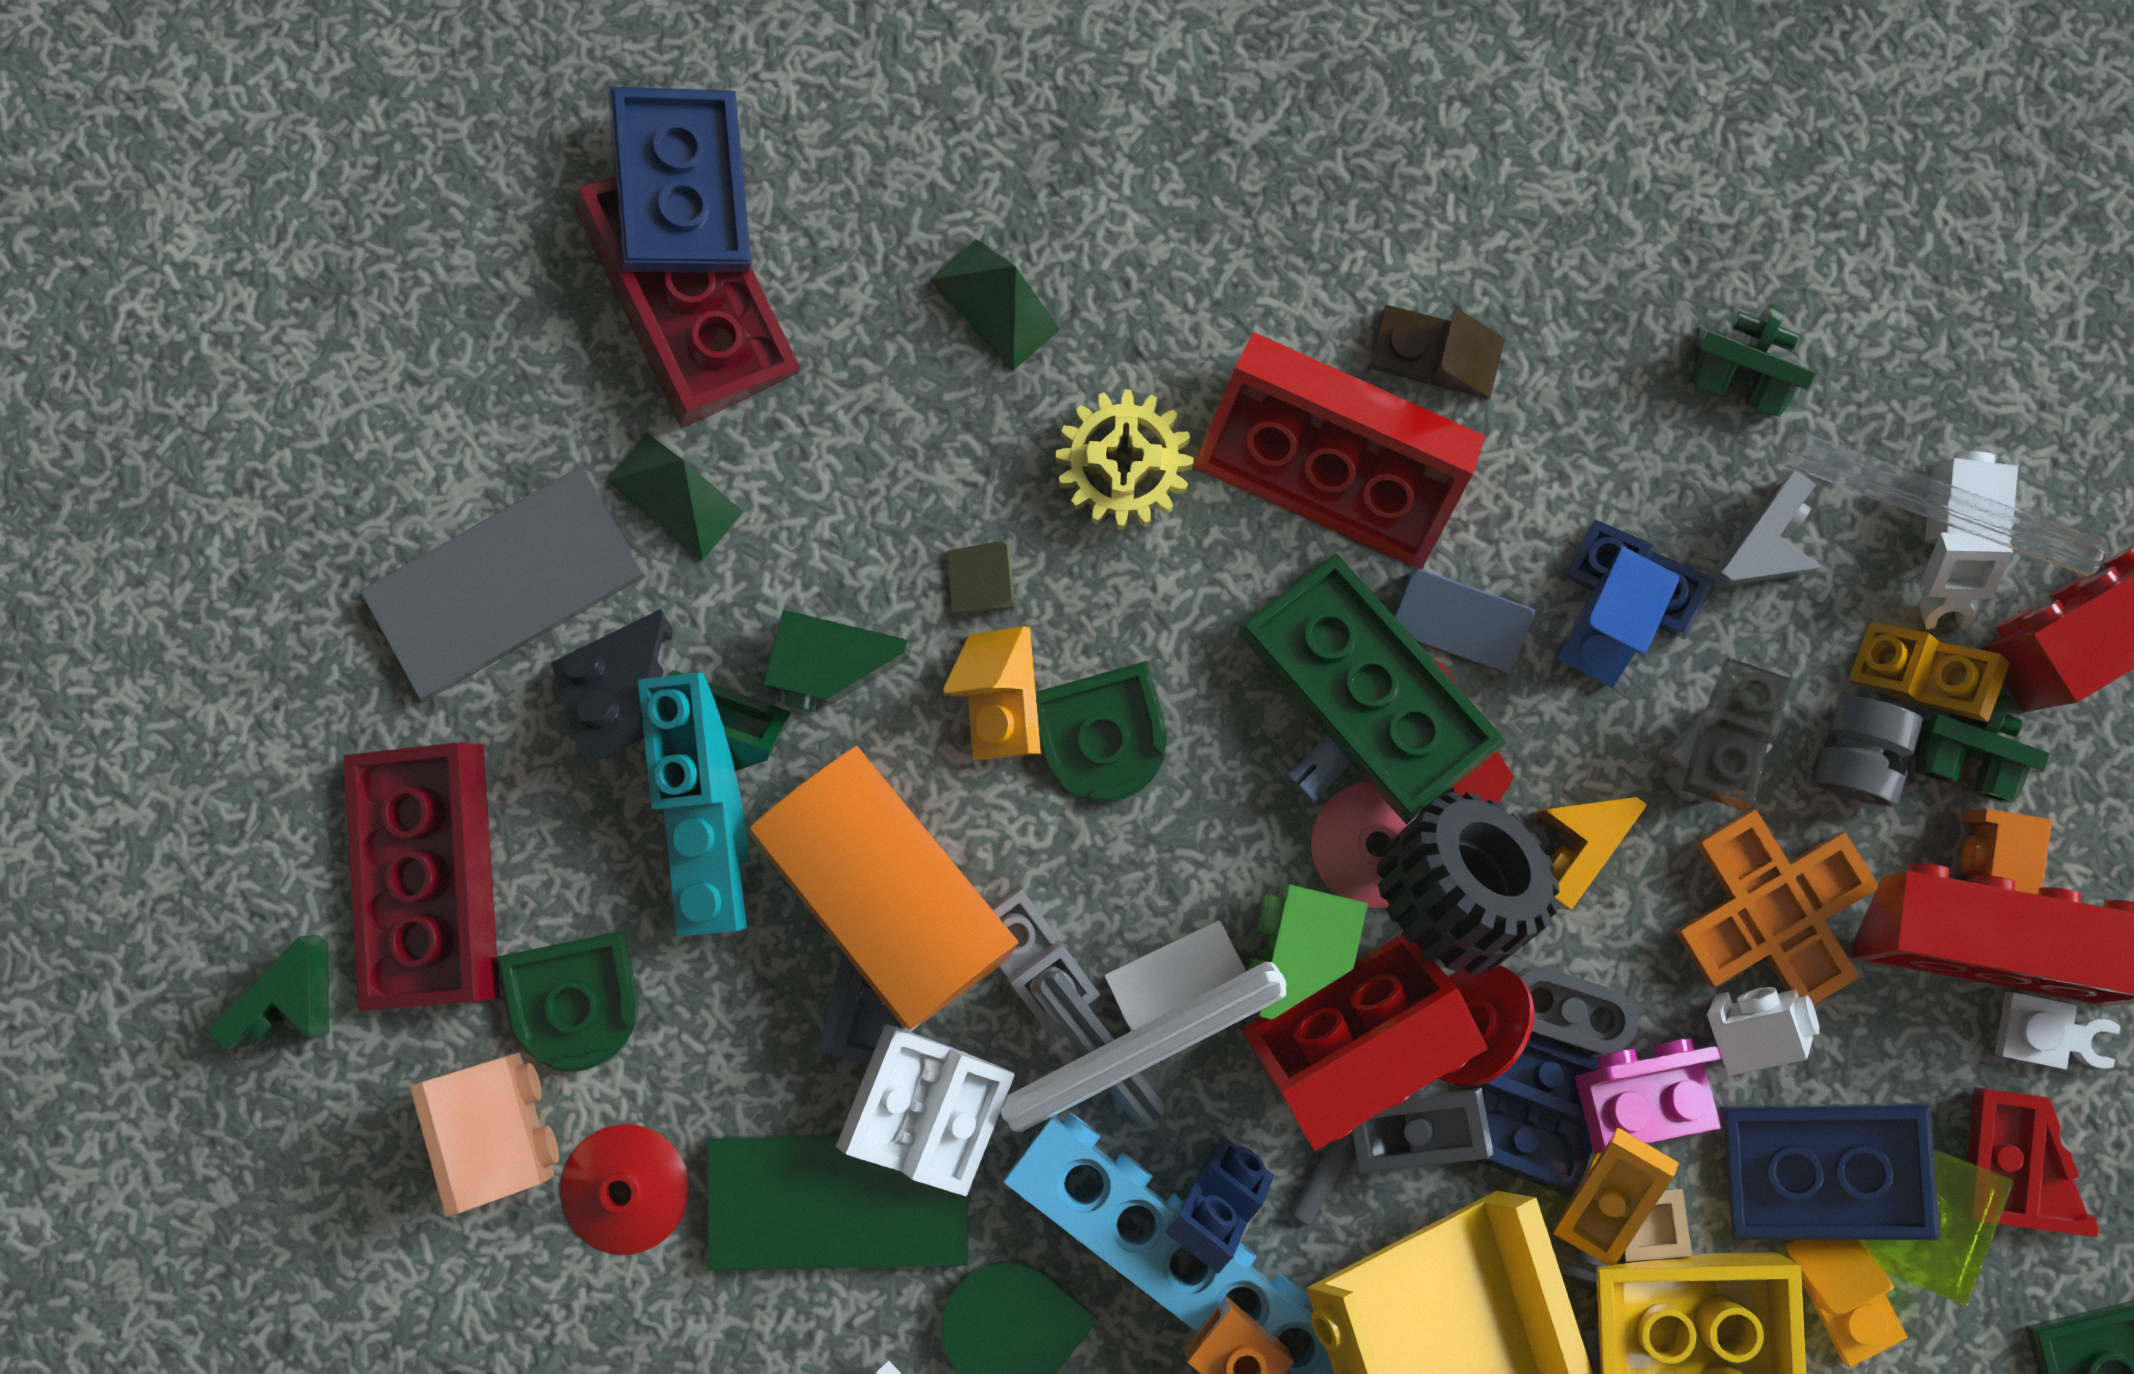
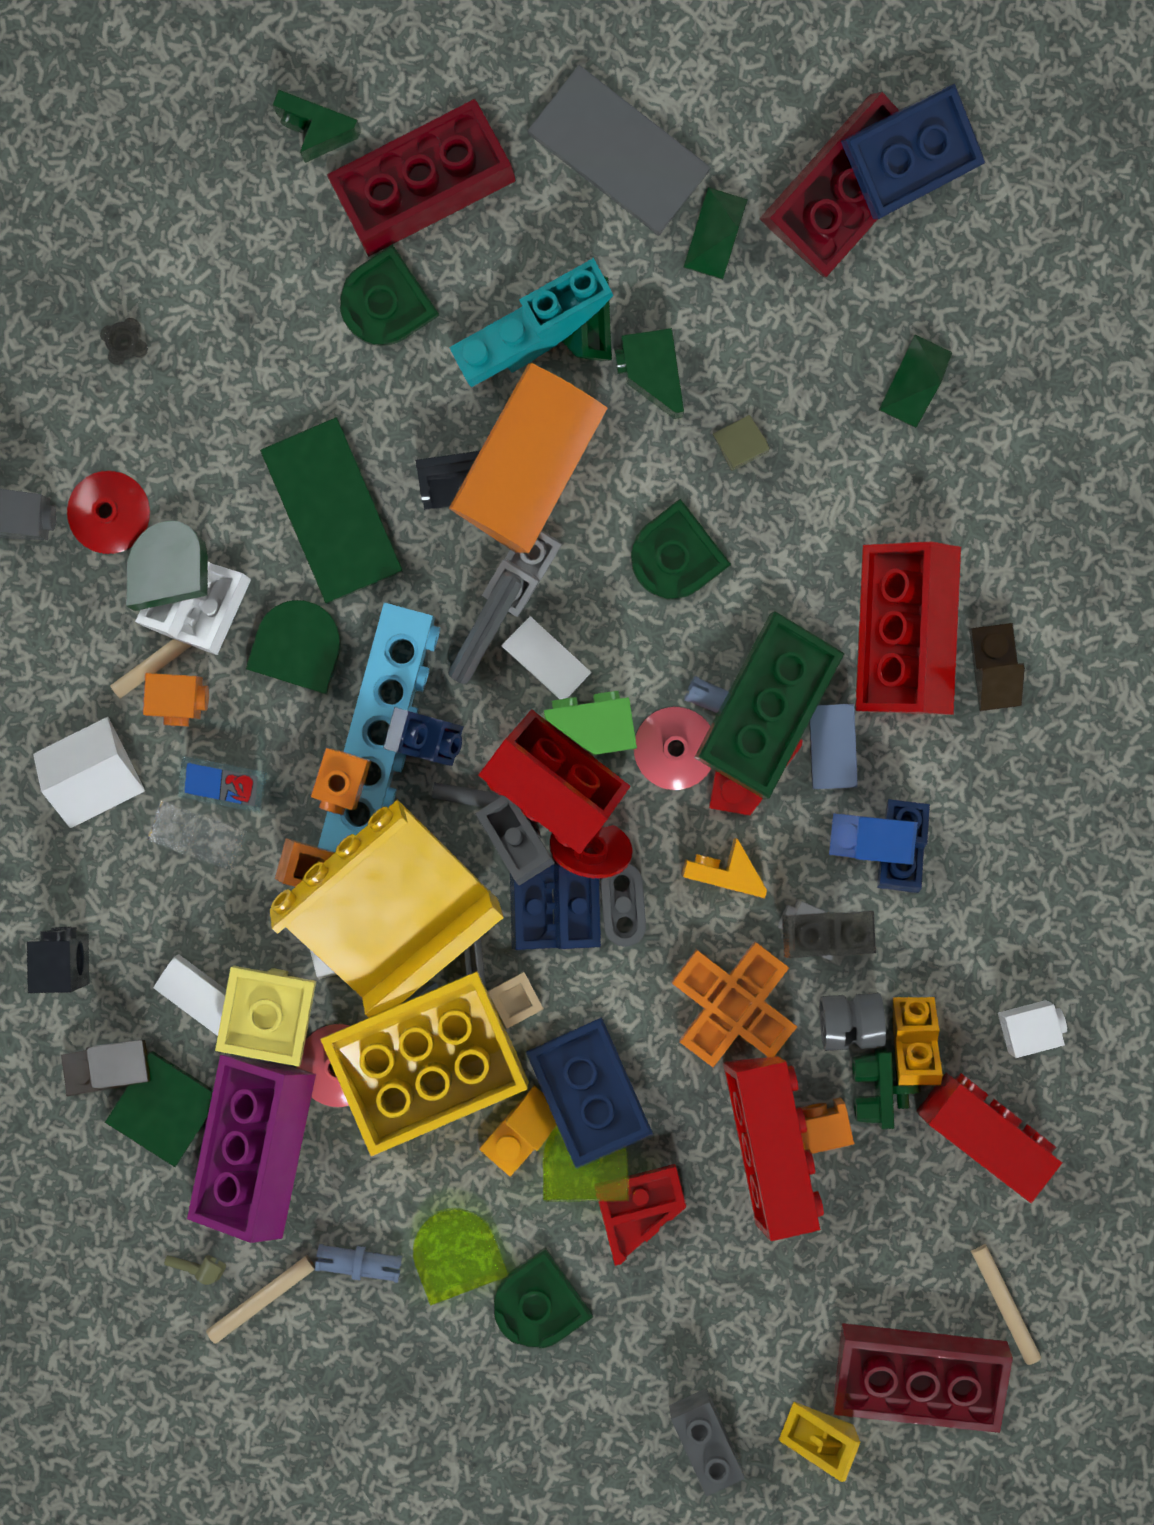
camera: 70 degrees right, 5 degrees up
(485, 1132) = (288, 281): slope -> none
(603, 688) = (583, 237): black wing -> none
(656, 1184) = (296, 398): red dish -> none
(925, 1110) = (407, 539): white slope -> none
(1000, 688) = (681, 479): light orange slope -> none
(1144, 1046) = (497, 651): white axle -> none
(1155, 459) = (844, 481): light yellow gear -> none
(1468, 883) = (673, 807): black tyre -> none
(1615, 1197) = (522, 966): light orange slope -> none
(1649, 1096) = (589, 968): bracket -> none
(1758, 549) = (948, 910): light grey slope -> none
(1762, 1028) = (658, 1019): white brick -> none
(1776, 376) = (1066, 880): dark green hips -> none
(1946, 504) = (1022, 1006): clear axle -> none
(1958, 572) = (983, 1035): white plate -> none
(2046, 1033) = (725, 1192): white plate -> none

